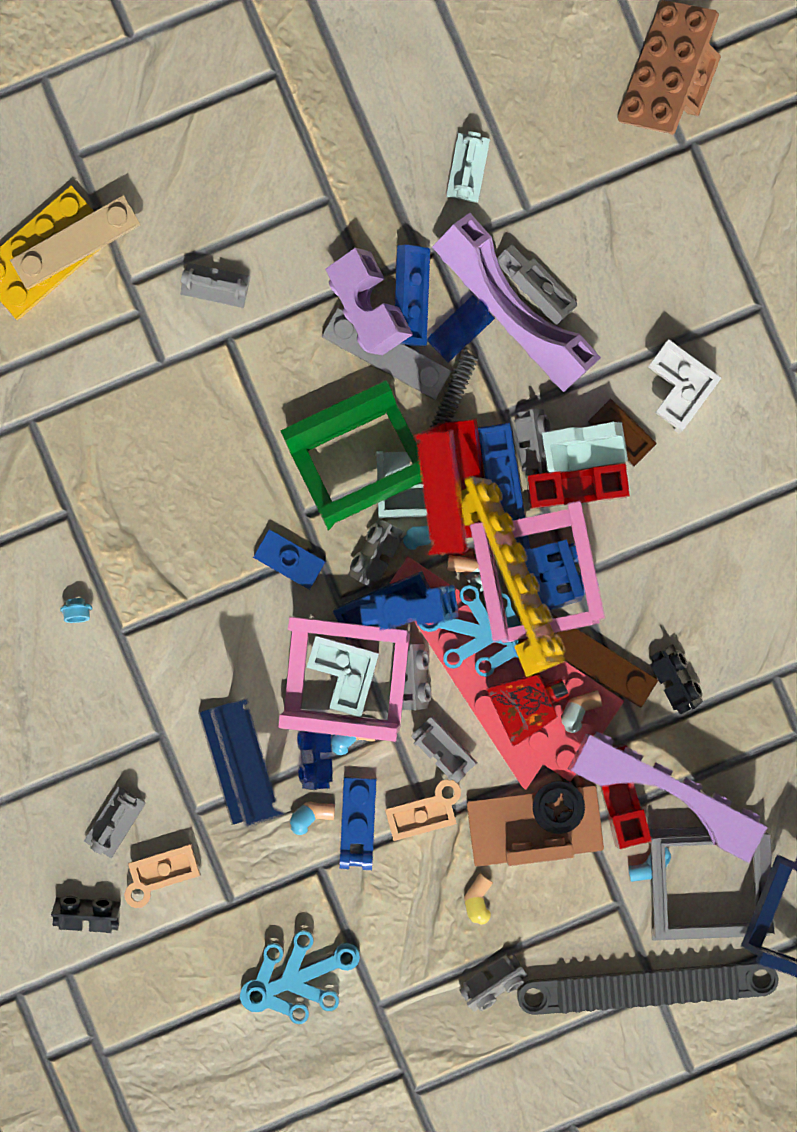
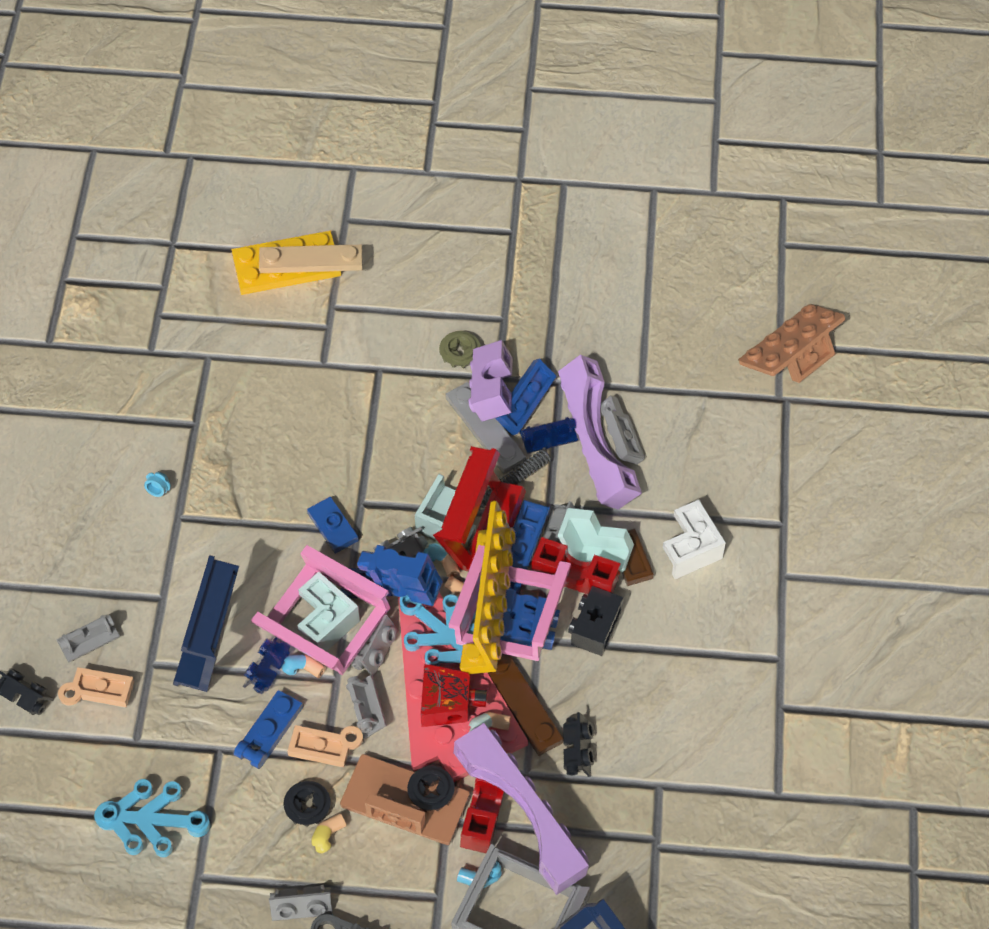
camera: 25 degrees right, 30 degrees down
(215, 285) = (389, 330): light grey hinge -> none
(307, 253) = (449, 346): none -> olive gear
(308, 814) = (236, 702): arm -> none
(337, 421) = (418, 449): green piece -> none
(430, 891) = (303, 792): none -> black gear
(468, 167) = (613, 339): light aqua hinge -> none
(634, 514) = (606, 610): none -> black brick

